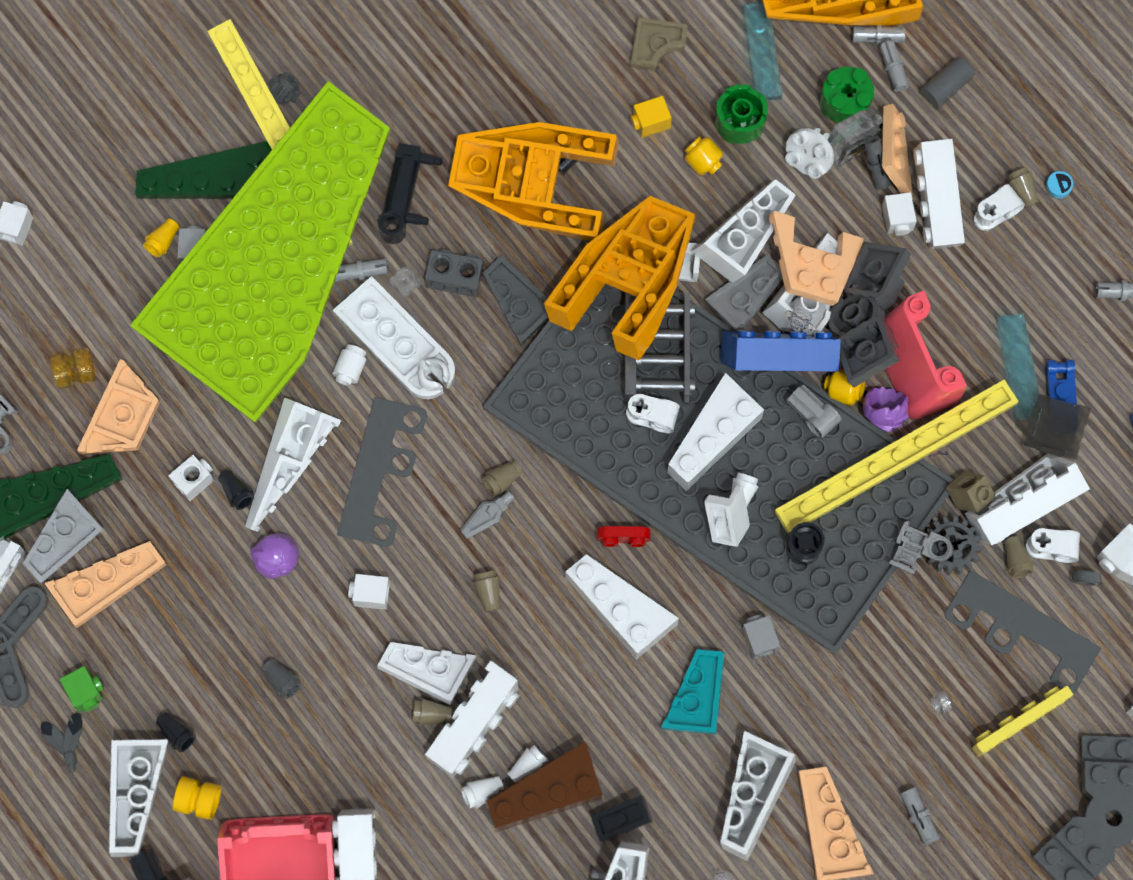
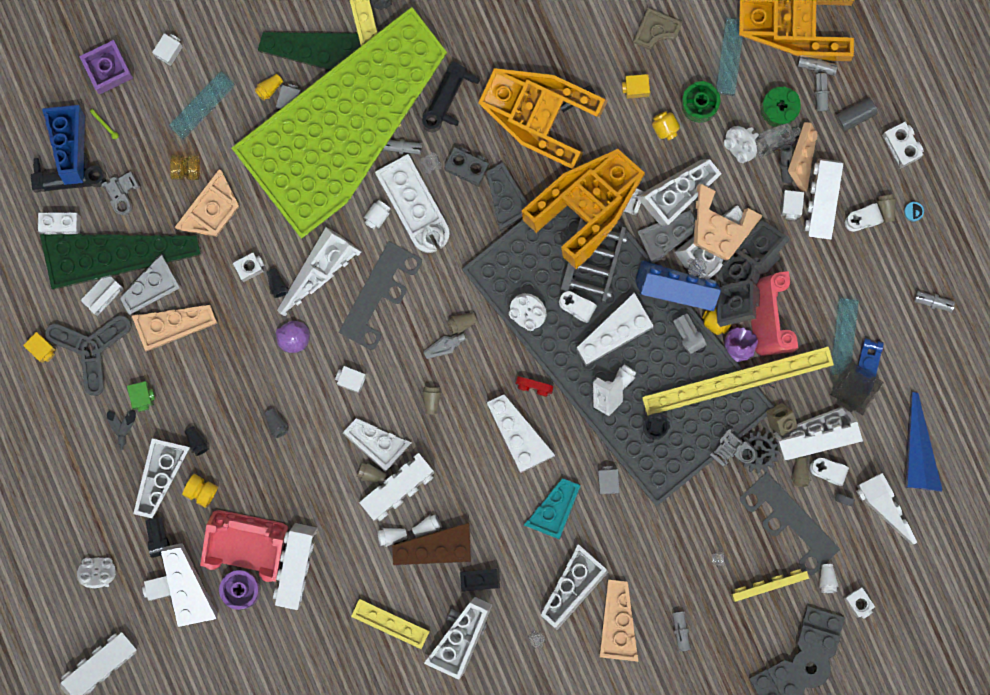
camera: 20 degrees right, 10 degrees up
(76, 285) = (201, 105): none -> clear light blue plate
(577, 431) = (535, 315): none -> white plate
(1014, 107) = (898, 147): none -> white brick
(1098, 691) = (828, 579): none -> white cone

